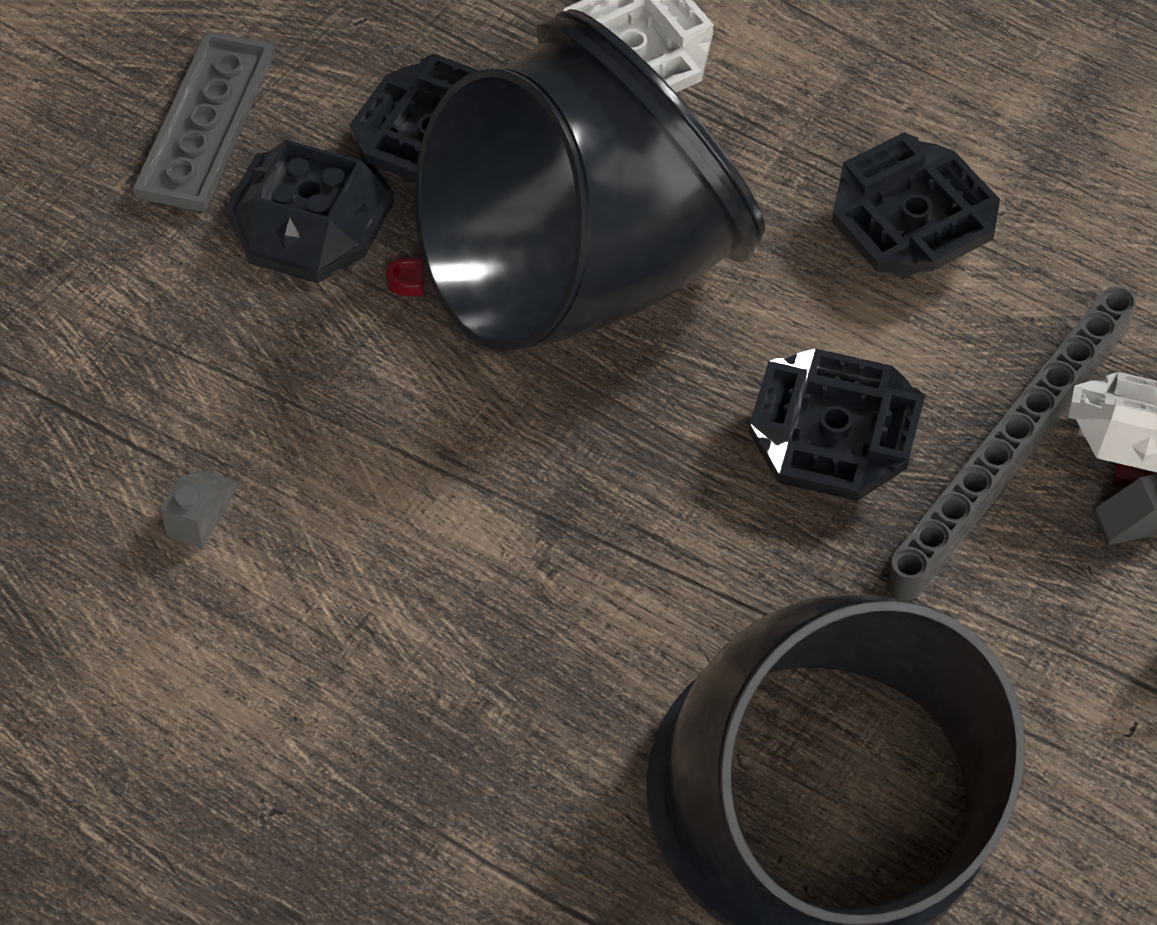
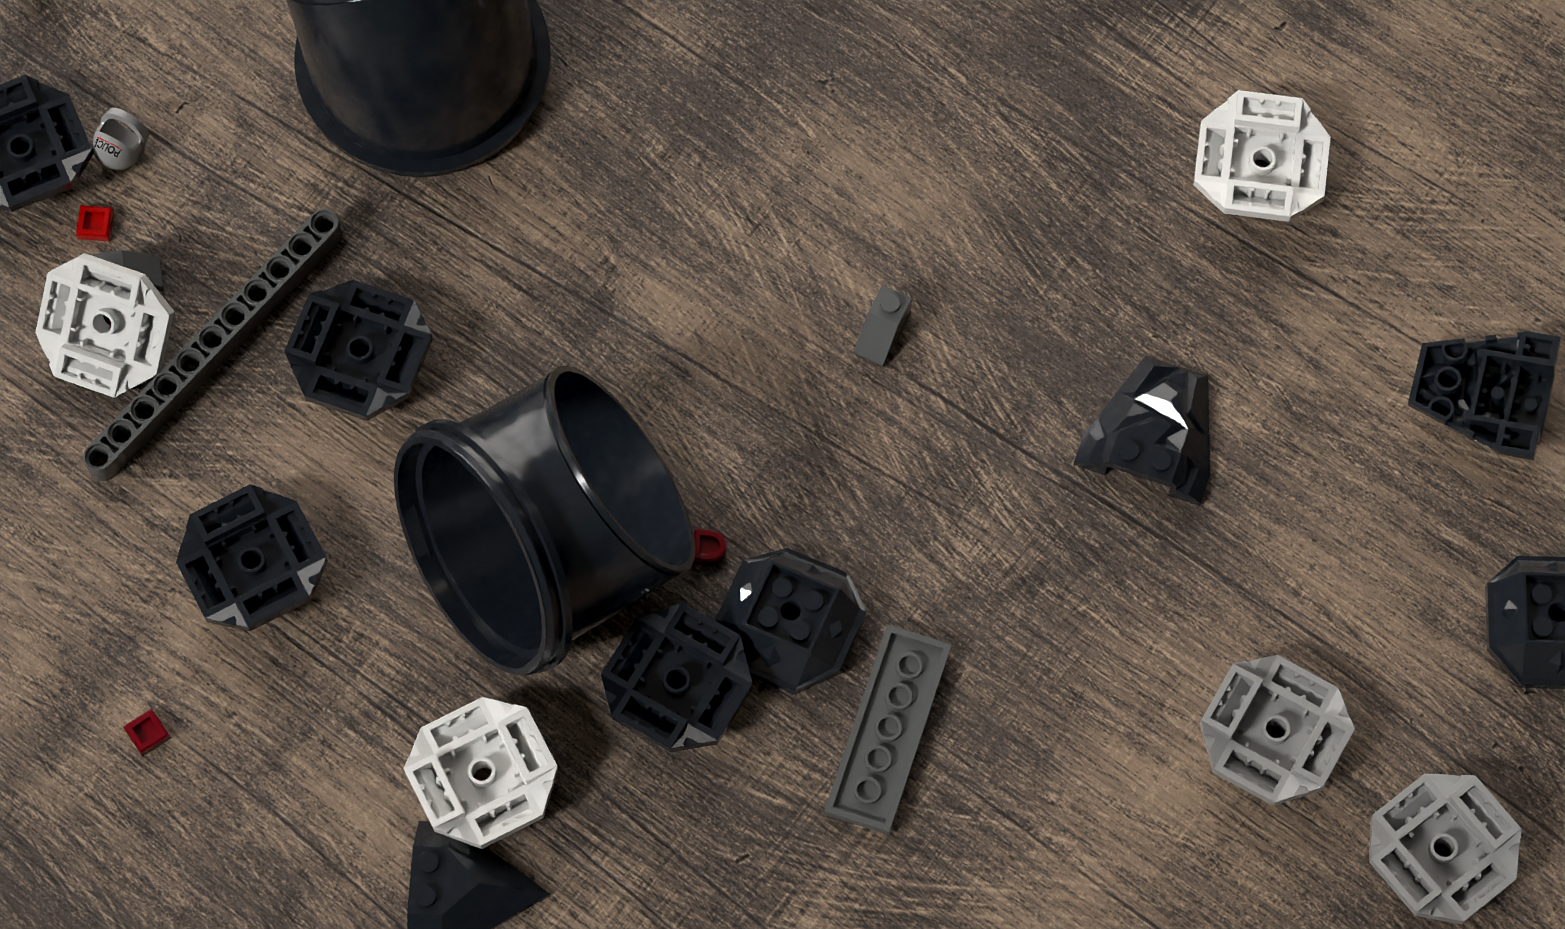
camera: 175 degrees left, 15 degrees up
(993, 85) = (147, 732): none -> dark red tile

